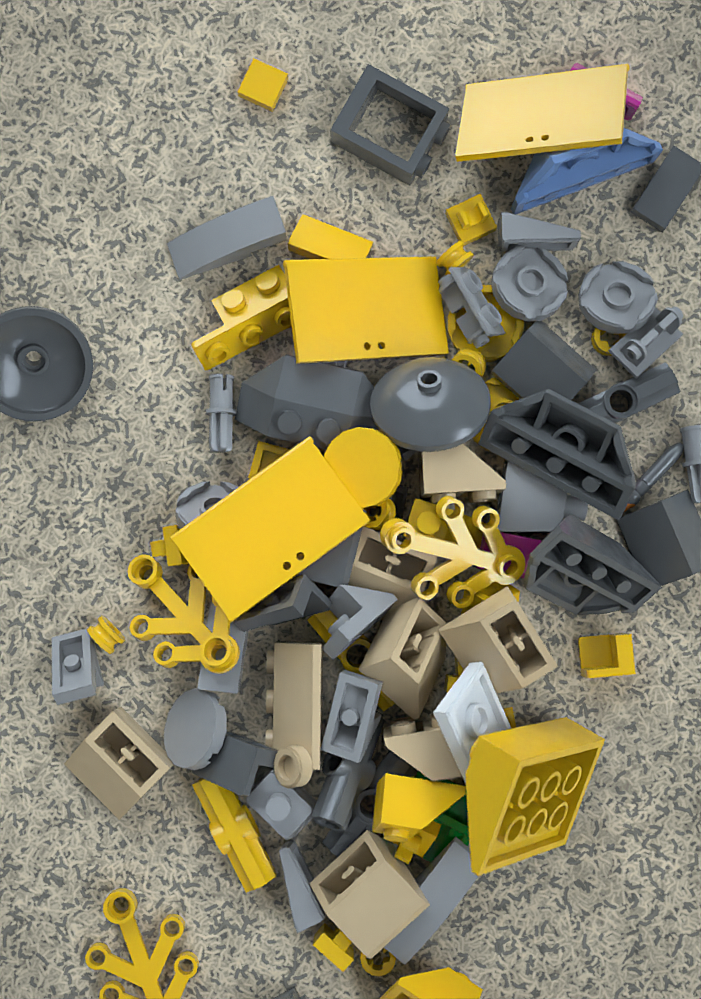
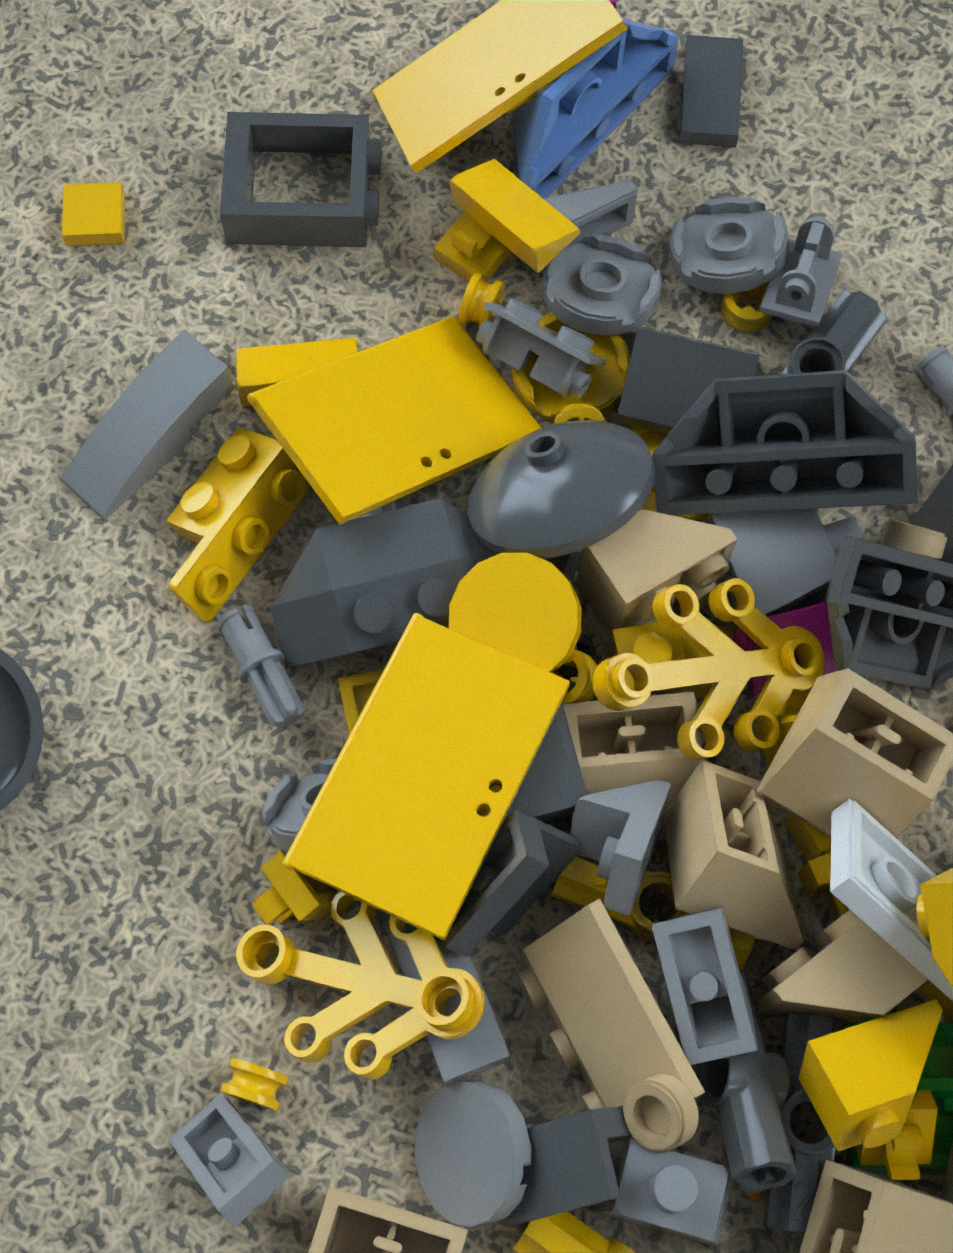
camera: 30 degrees left, 15 degrees down
(498, 218) = (513, 213): none -> yellow slope
(614, 531) = (913, 538): none -> tan tile
(655, 472) = (921, 426): dark grey piece -> none

